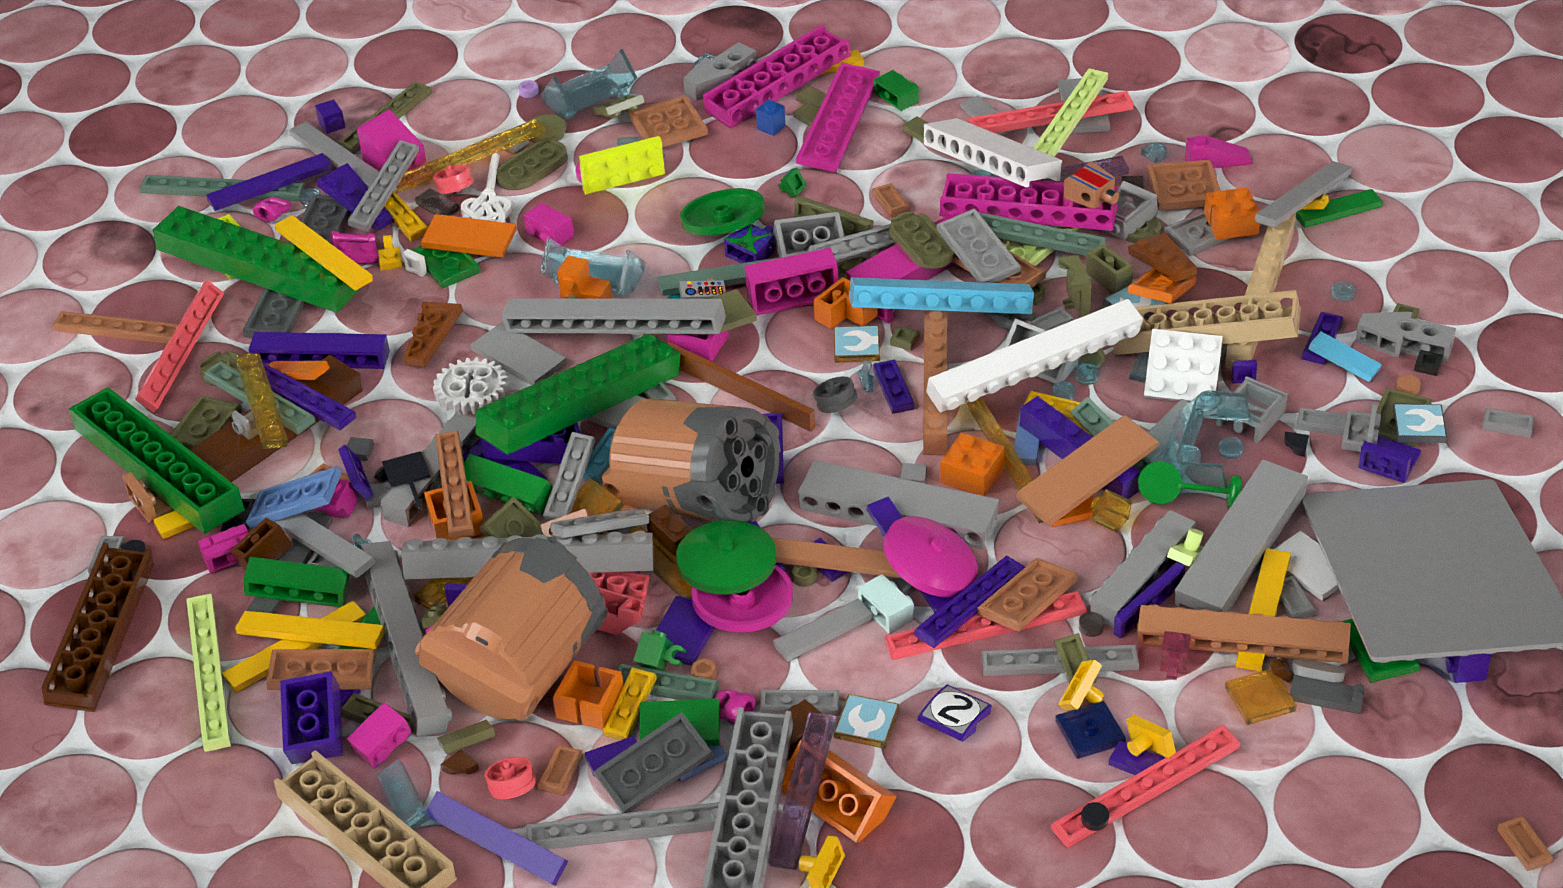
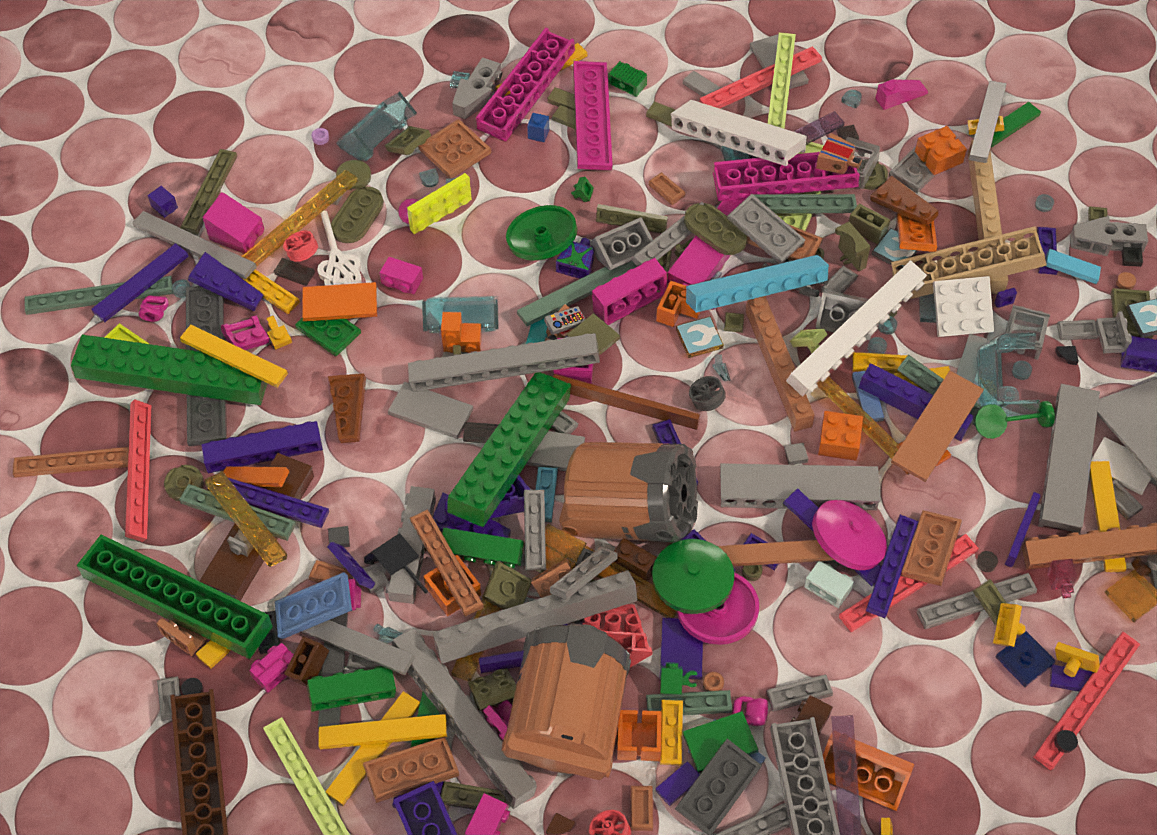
camera: 20 degrees left, 15 degrees up
(203, 420) = (194, 544): olive tile -> none
(383, 185) = (247, 268): light grey tile -> none
(414, 262) = (304, 338): white tile -> none
(453, 385) = (388, 456): white gear -> none
(466, 736) = (555, 799): olive tile -> none
(822, 630) = (788, 620): light grey tile -> none
(866, 721) = (858, 696): tile -> none
(893, 386) = (745, 371): dark purple tile -> none
(954, 712) = (921, 672): slope -> none
(1111, 510) = (963, 454): clear yellow brick -> none
(1142, 567) = (1006, 501): light grey brick -> none
(1182, 183) = (888, 126): nougat plate -> none
(1188, 550) = (1036, 478): yellowish green tile -> none

